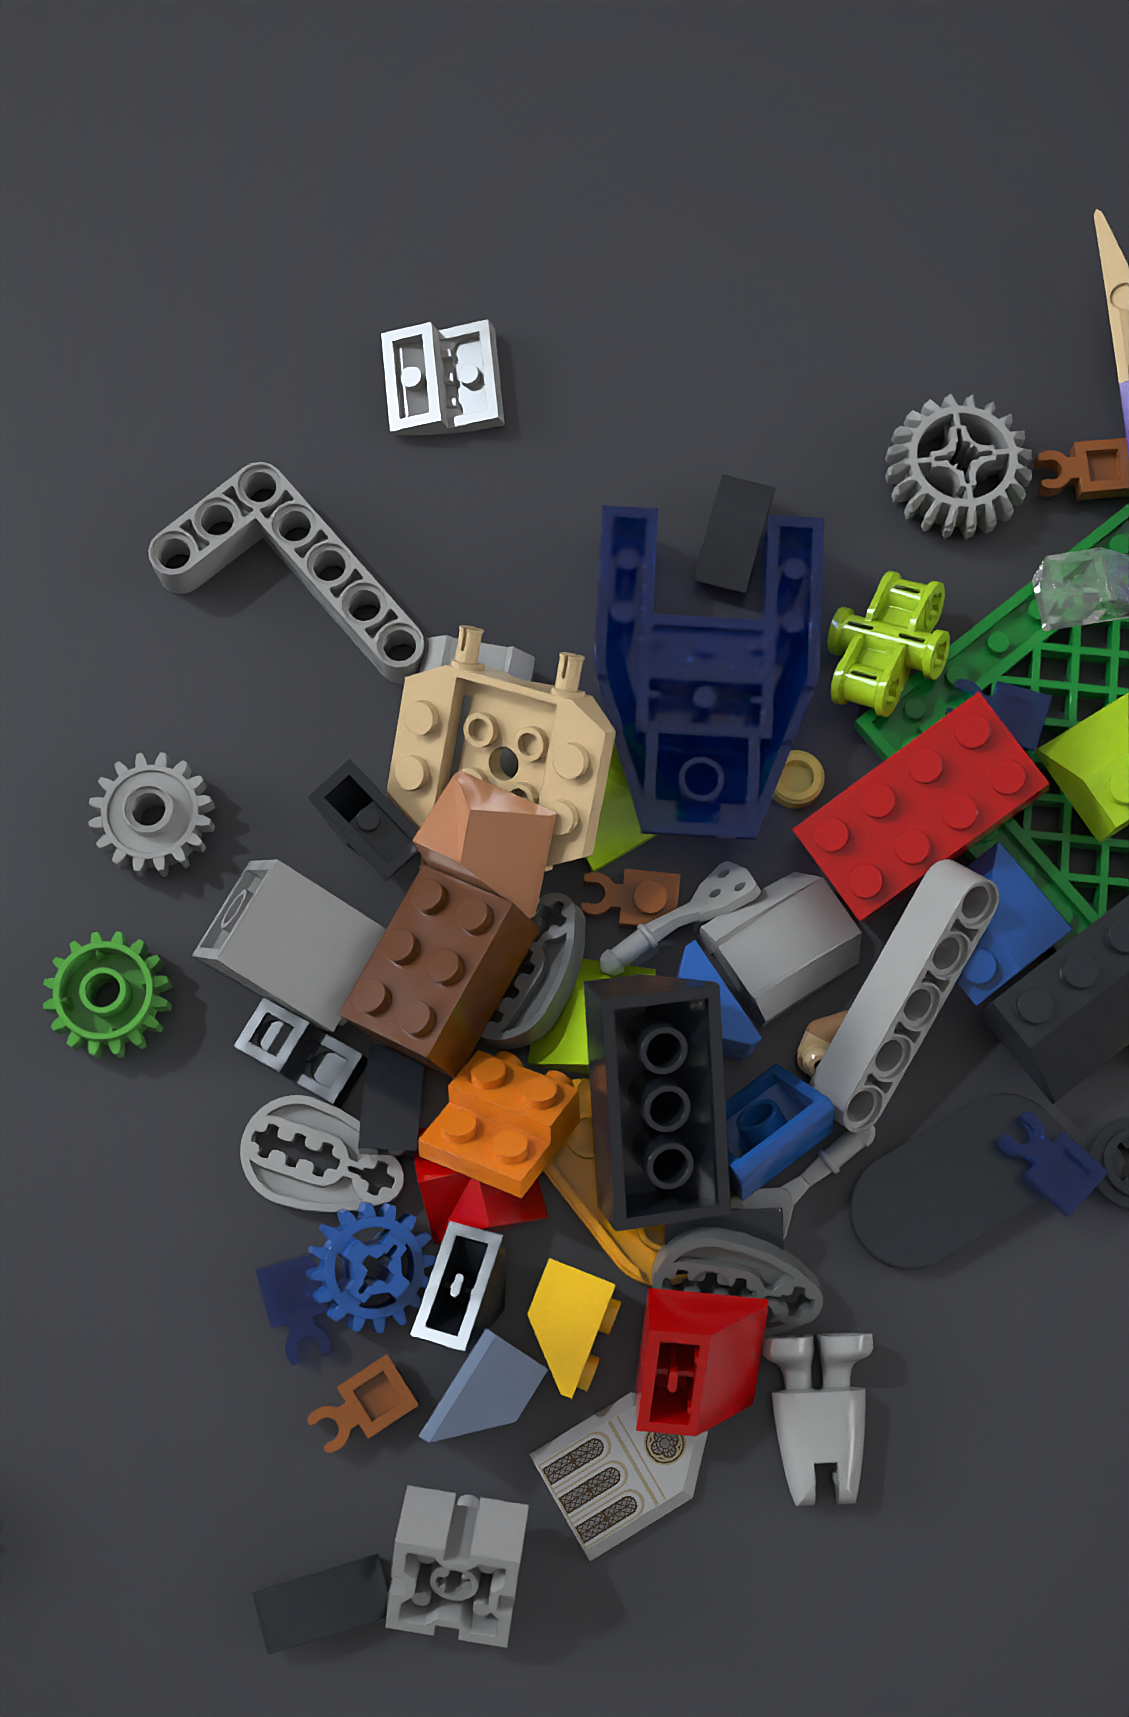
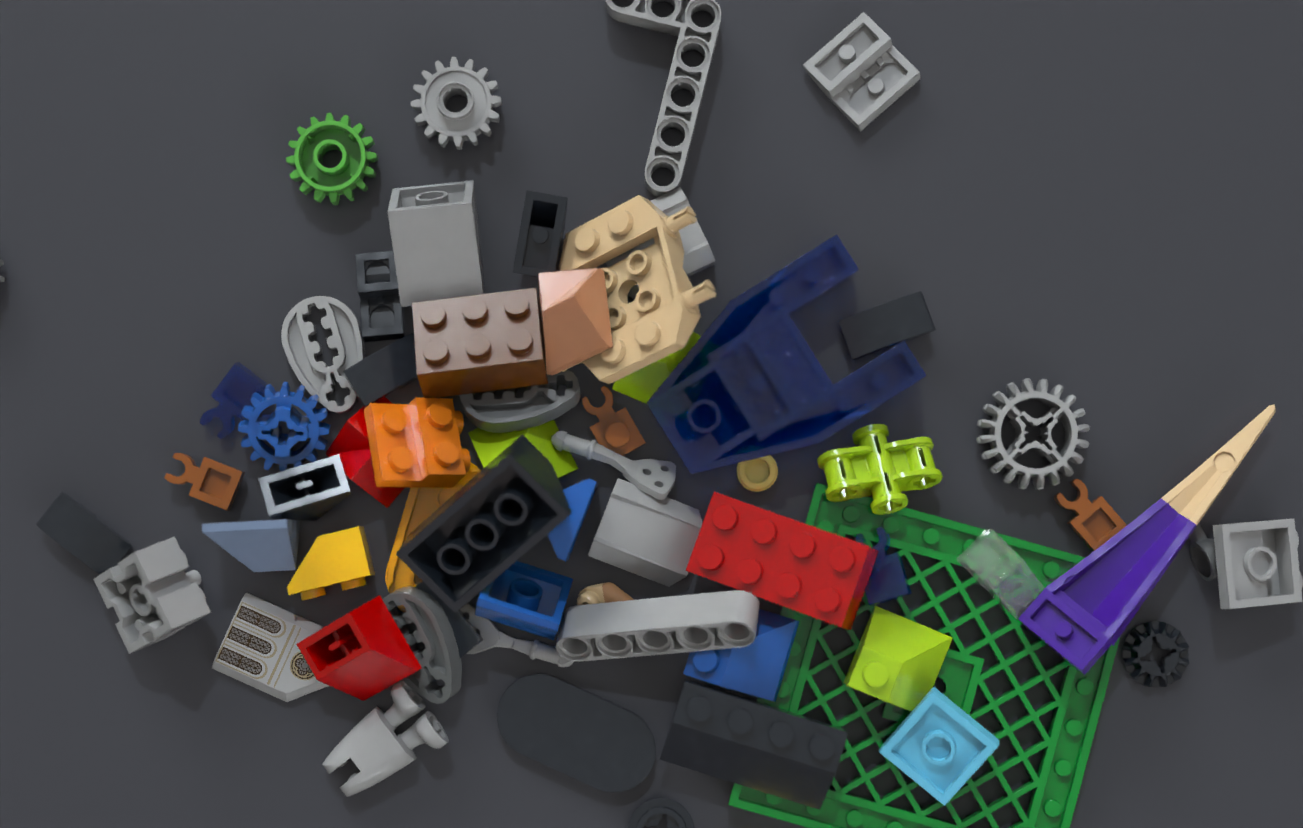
camera: 55 degrees right, 10 degrees up
(1058, 1168) = (621, 788): clear blue plate -> none

